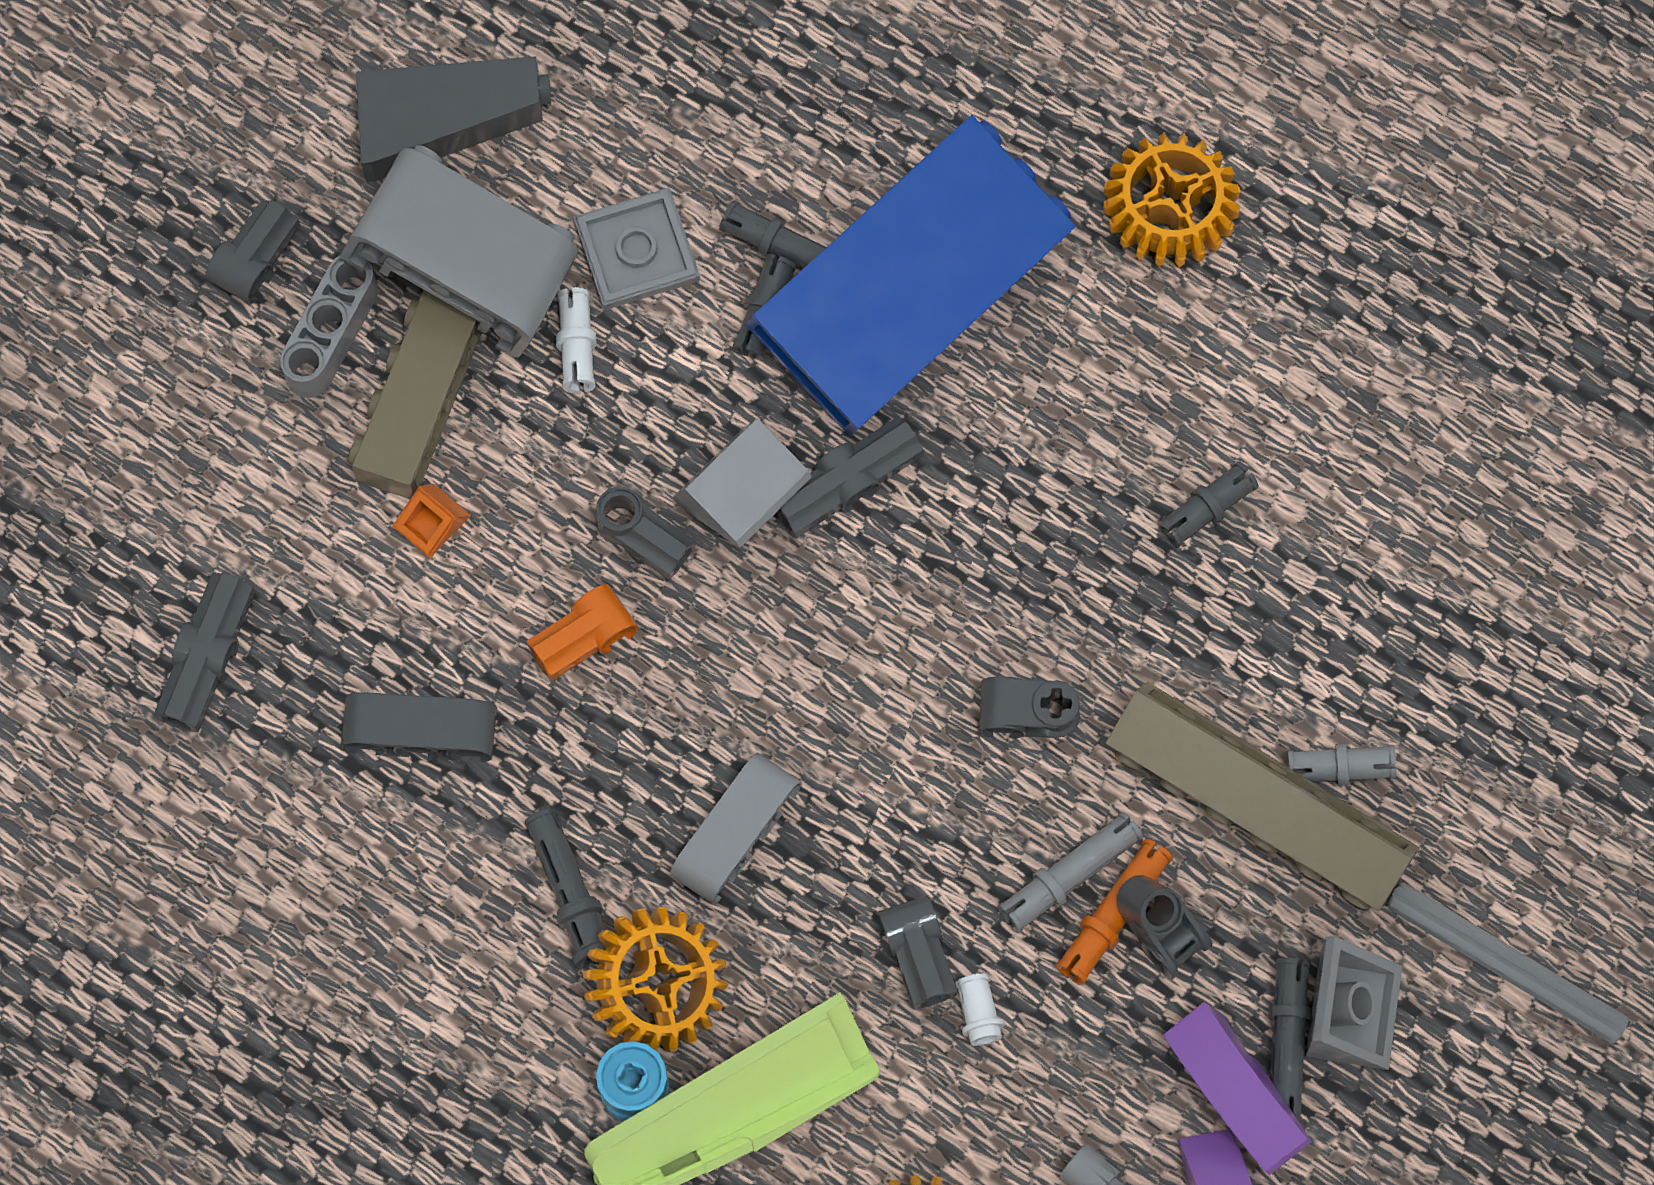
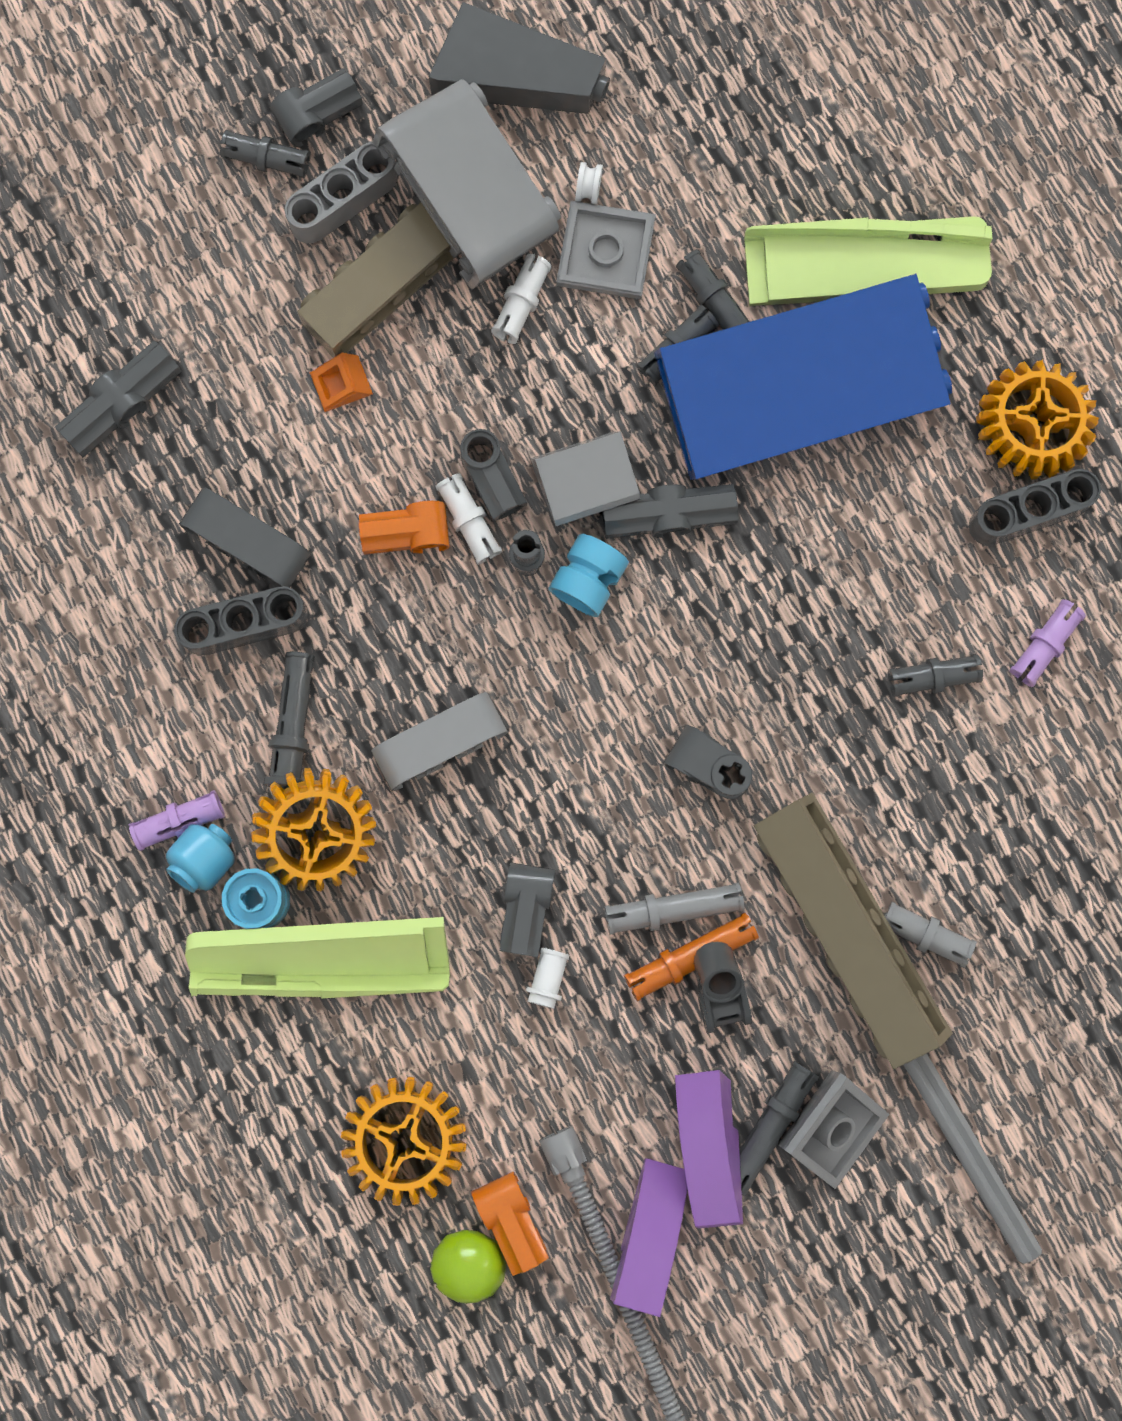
camera: 25 degrees right, 10 degrees up
(224, 326) = (265, 153): none -> dark grey pin
(469, 787) = (221, 615): none -> dark grey beam
(502, 1051) = (176, 820): none -> lavender pin
(549, 1074) = (200, 857): none -> medium azure head
(583, 189) = (588, 183): none -> white bush
(642, 589) = (468, 518): none -> white pin
(725, 588) = (526, 552): none -> dark grey pin
(800, 577) = (590, 572): none -> medium azure wheel
(893, 130) = (846, 255): none -> yellowish green piece
(1224, 267) = (1048, 493): none -> dark grey beam
(1303, 414) = (1047, 642): none -> lavender pin

